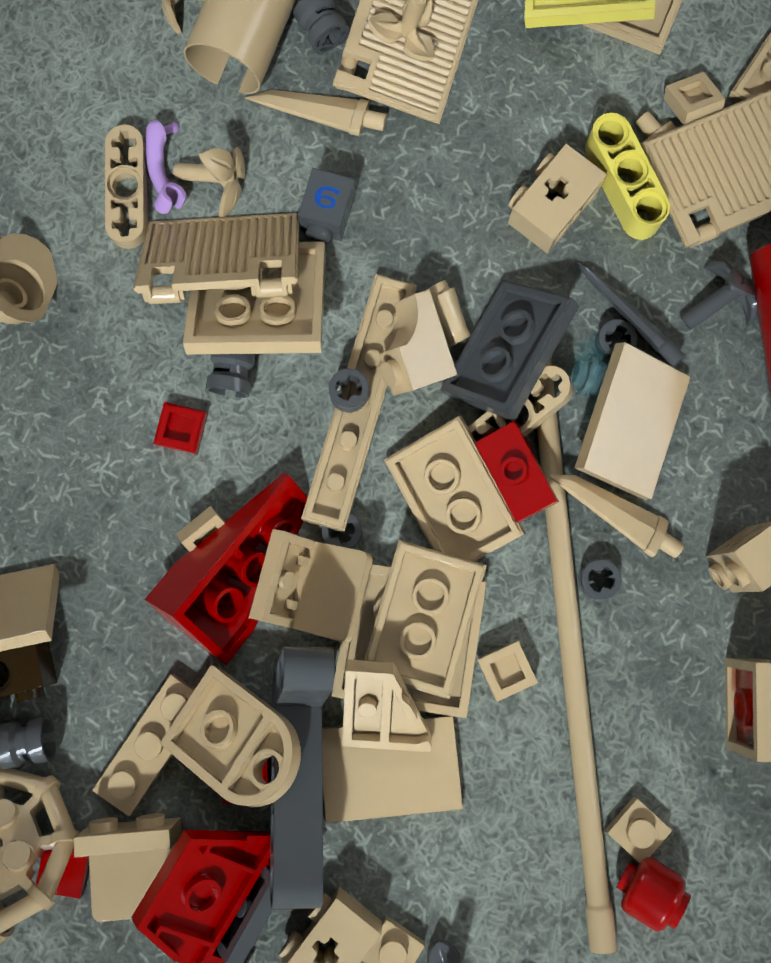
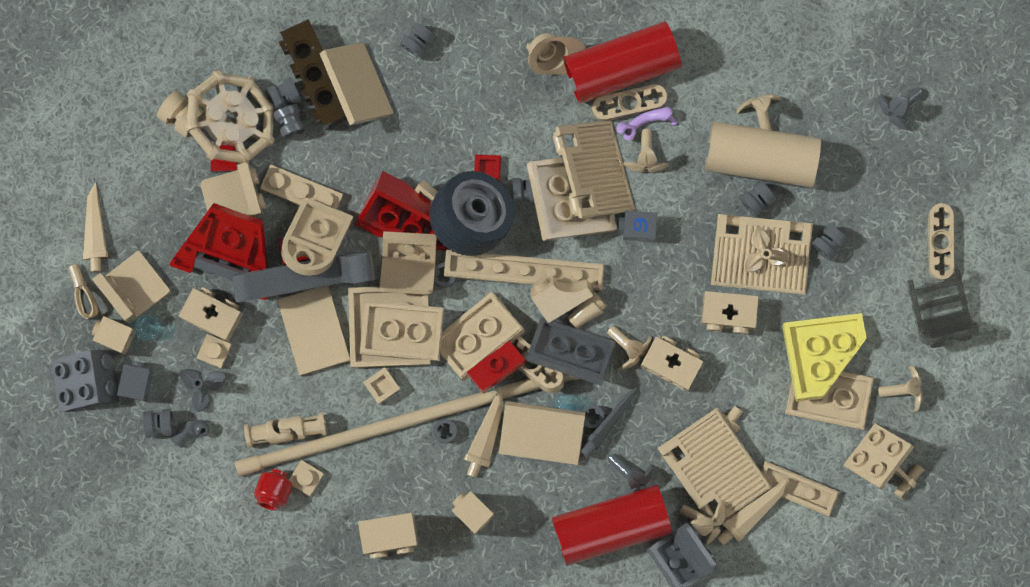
camera: 80 degrees right, 0 degrees up
(54, 170) = (623, 62): none -> red piece
(250, 461) = (471, 213): none -> black wheel
(335, 112) = (704, 221): tan bar -> none
(342, 379) = (533, 257): dark grey bush -> none
(381, 709) = (346, 316): tan wing -> none
(494, 73) = (743, 305): none -> tan brick
(524, 251) = (634, 348): none -> tan plant
(552, 846) = (301, 428): none -> tan piece
(627, 158) = (703, 394): light yellow beam -> none
(693, 98) = (754, 437): tan plate -> none

